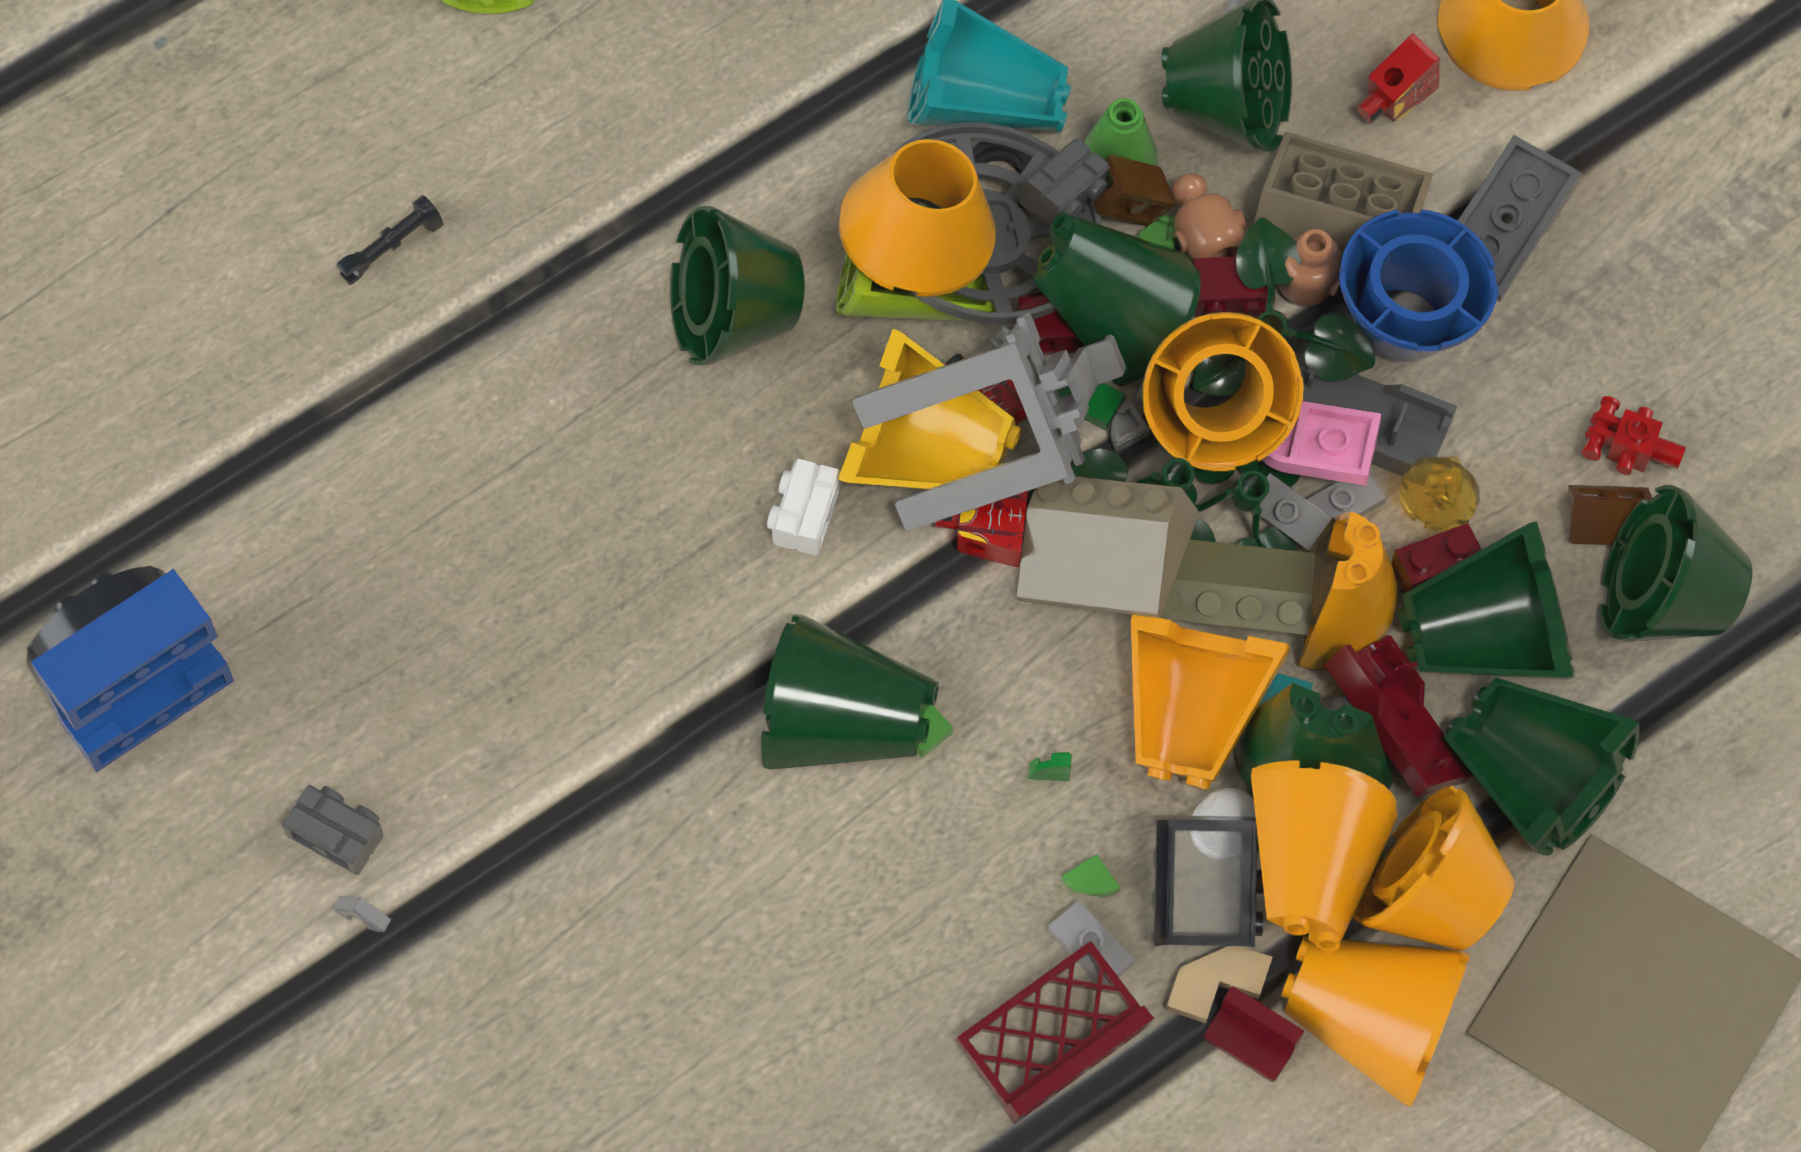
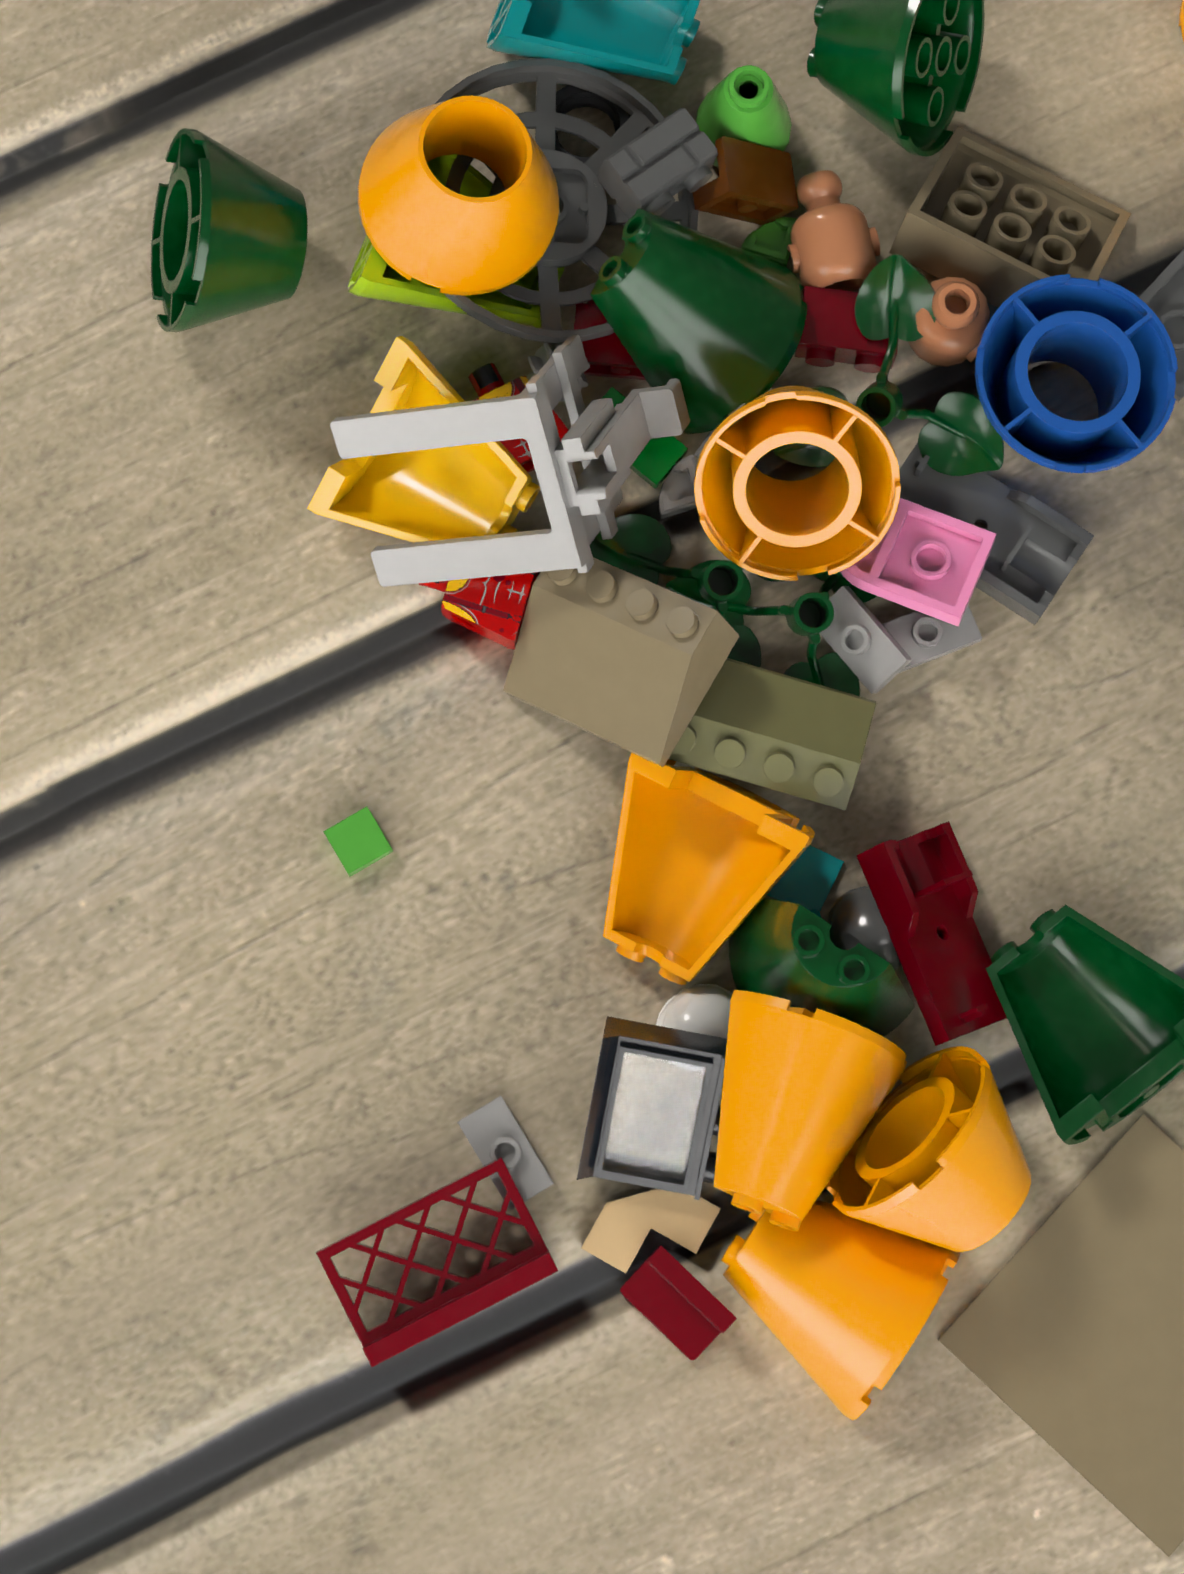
camera: 10 degrees right, 15 degrees up
(805, 507) = (264, 533): white brick -> none
(840, 701) = (258, 790): dark green cone -> none
(1055, 769) = (503, 921): green tile -> none
(1091, 879) = (523, 1069): bright green tile -> none
(1361, 593) = (925, 779): light orange cone -> none
(1401, 81) = (1128, 74): red torso -> none
(1432, 555) = (1026, 736): dark red brick -> none
(1439, 493) = (1049, 647): clear yellow tile -> none
(1491, 614) = (1079, 825): dark green cone -> none

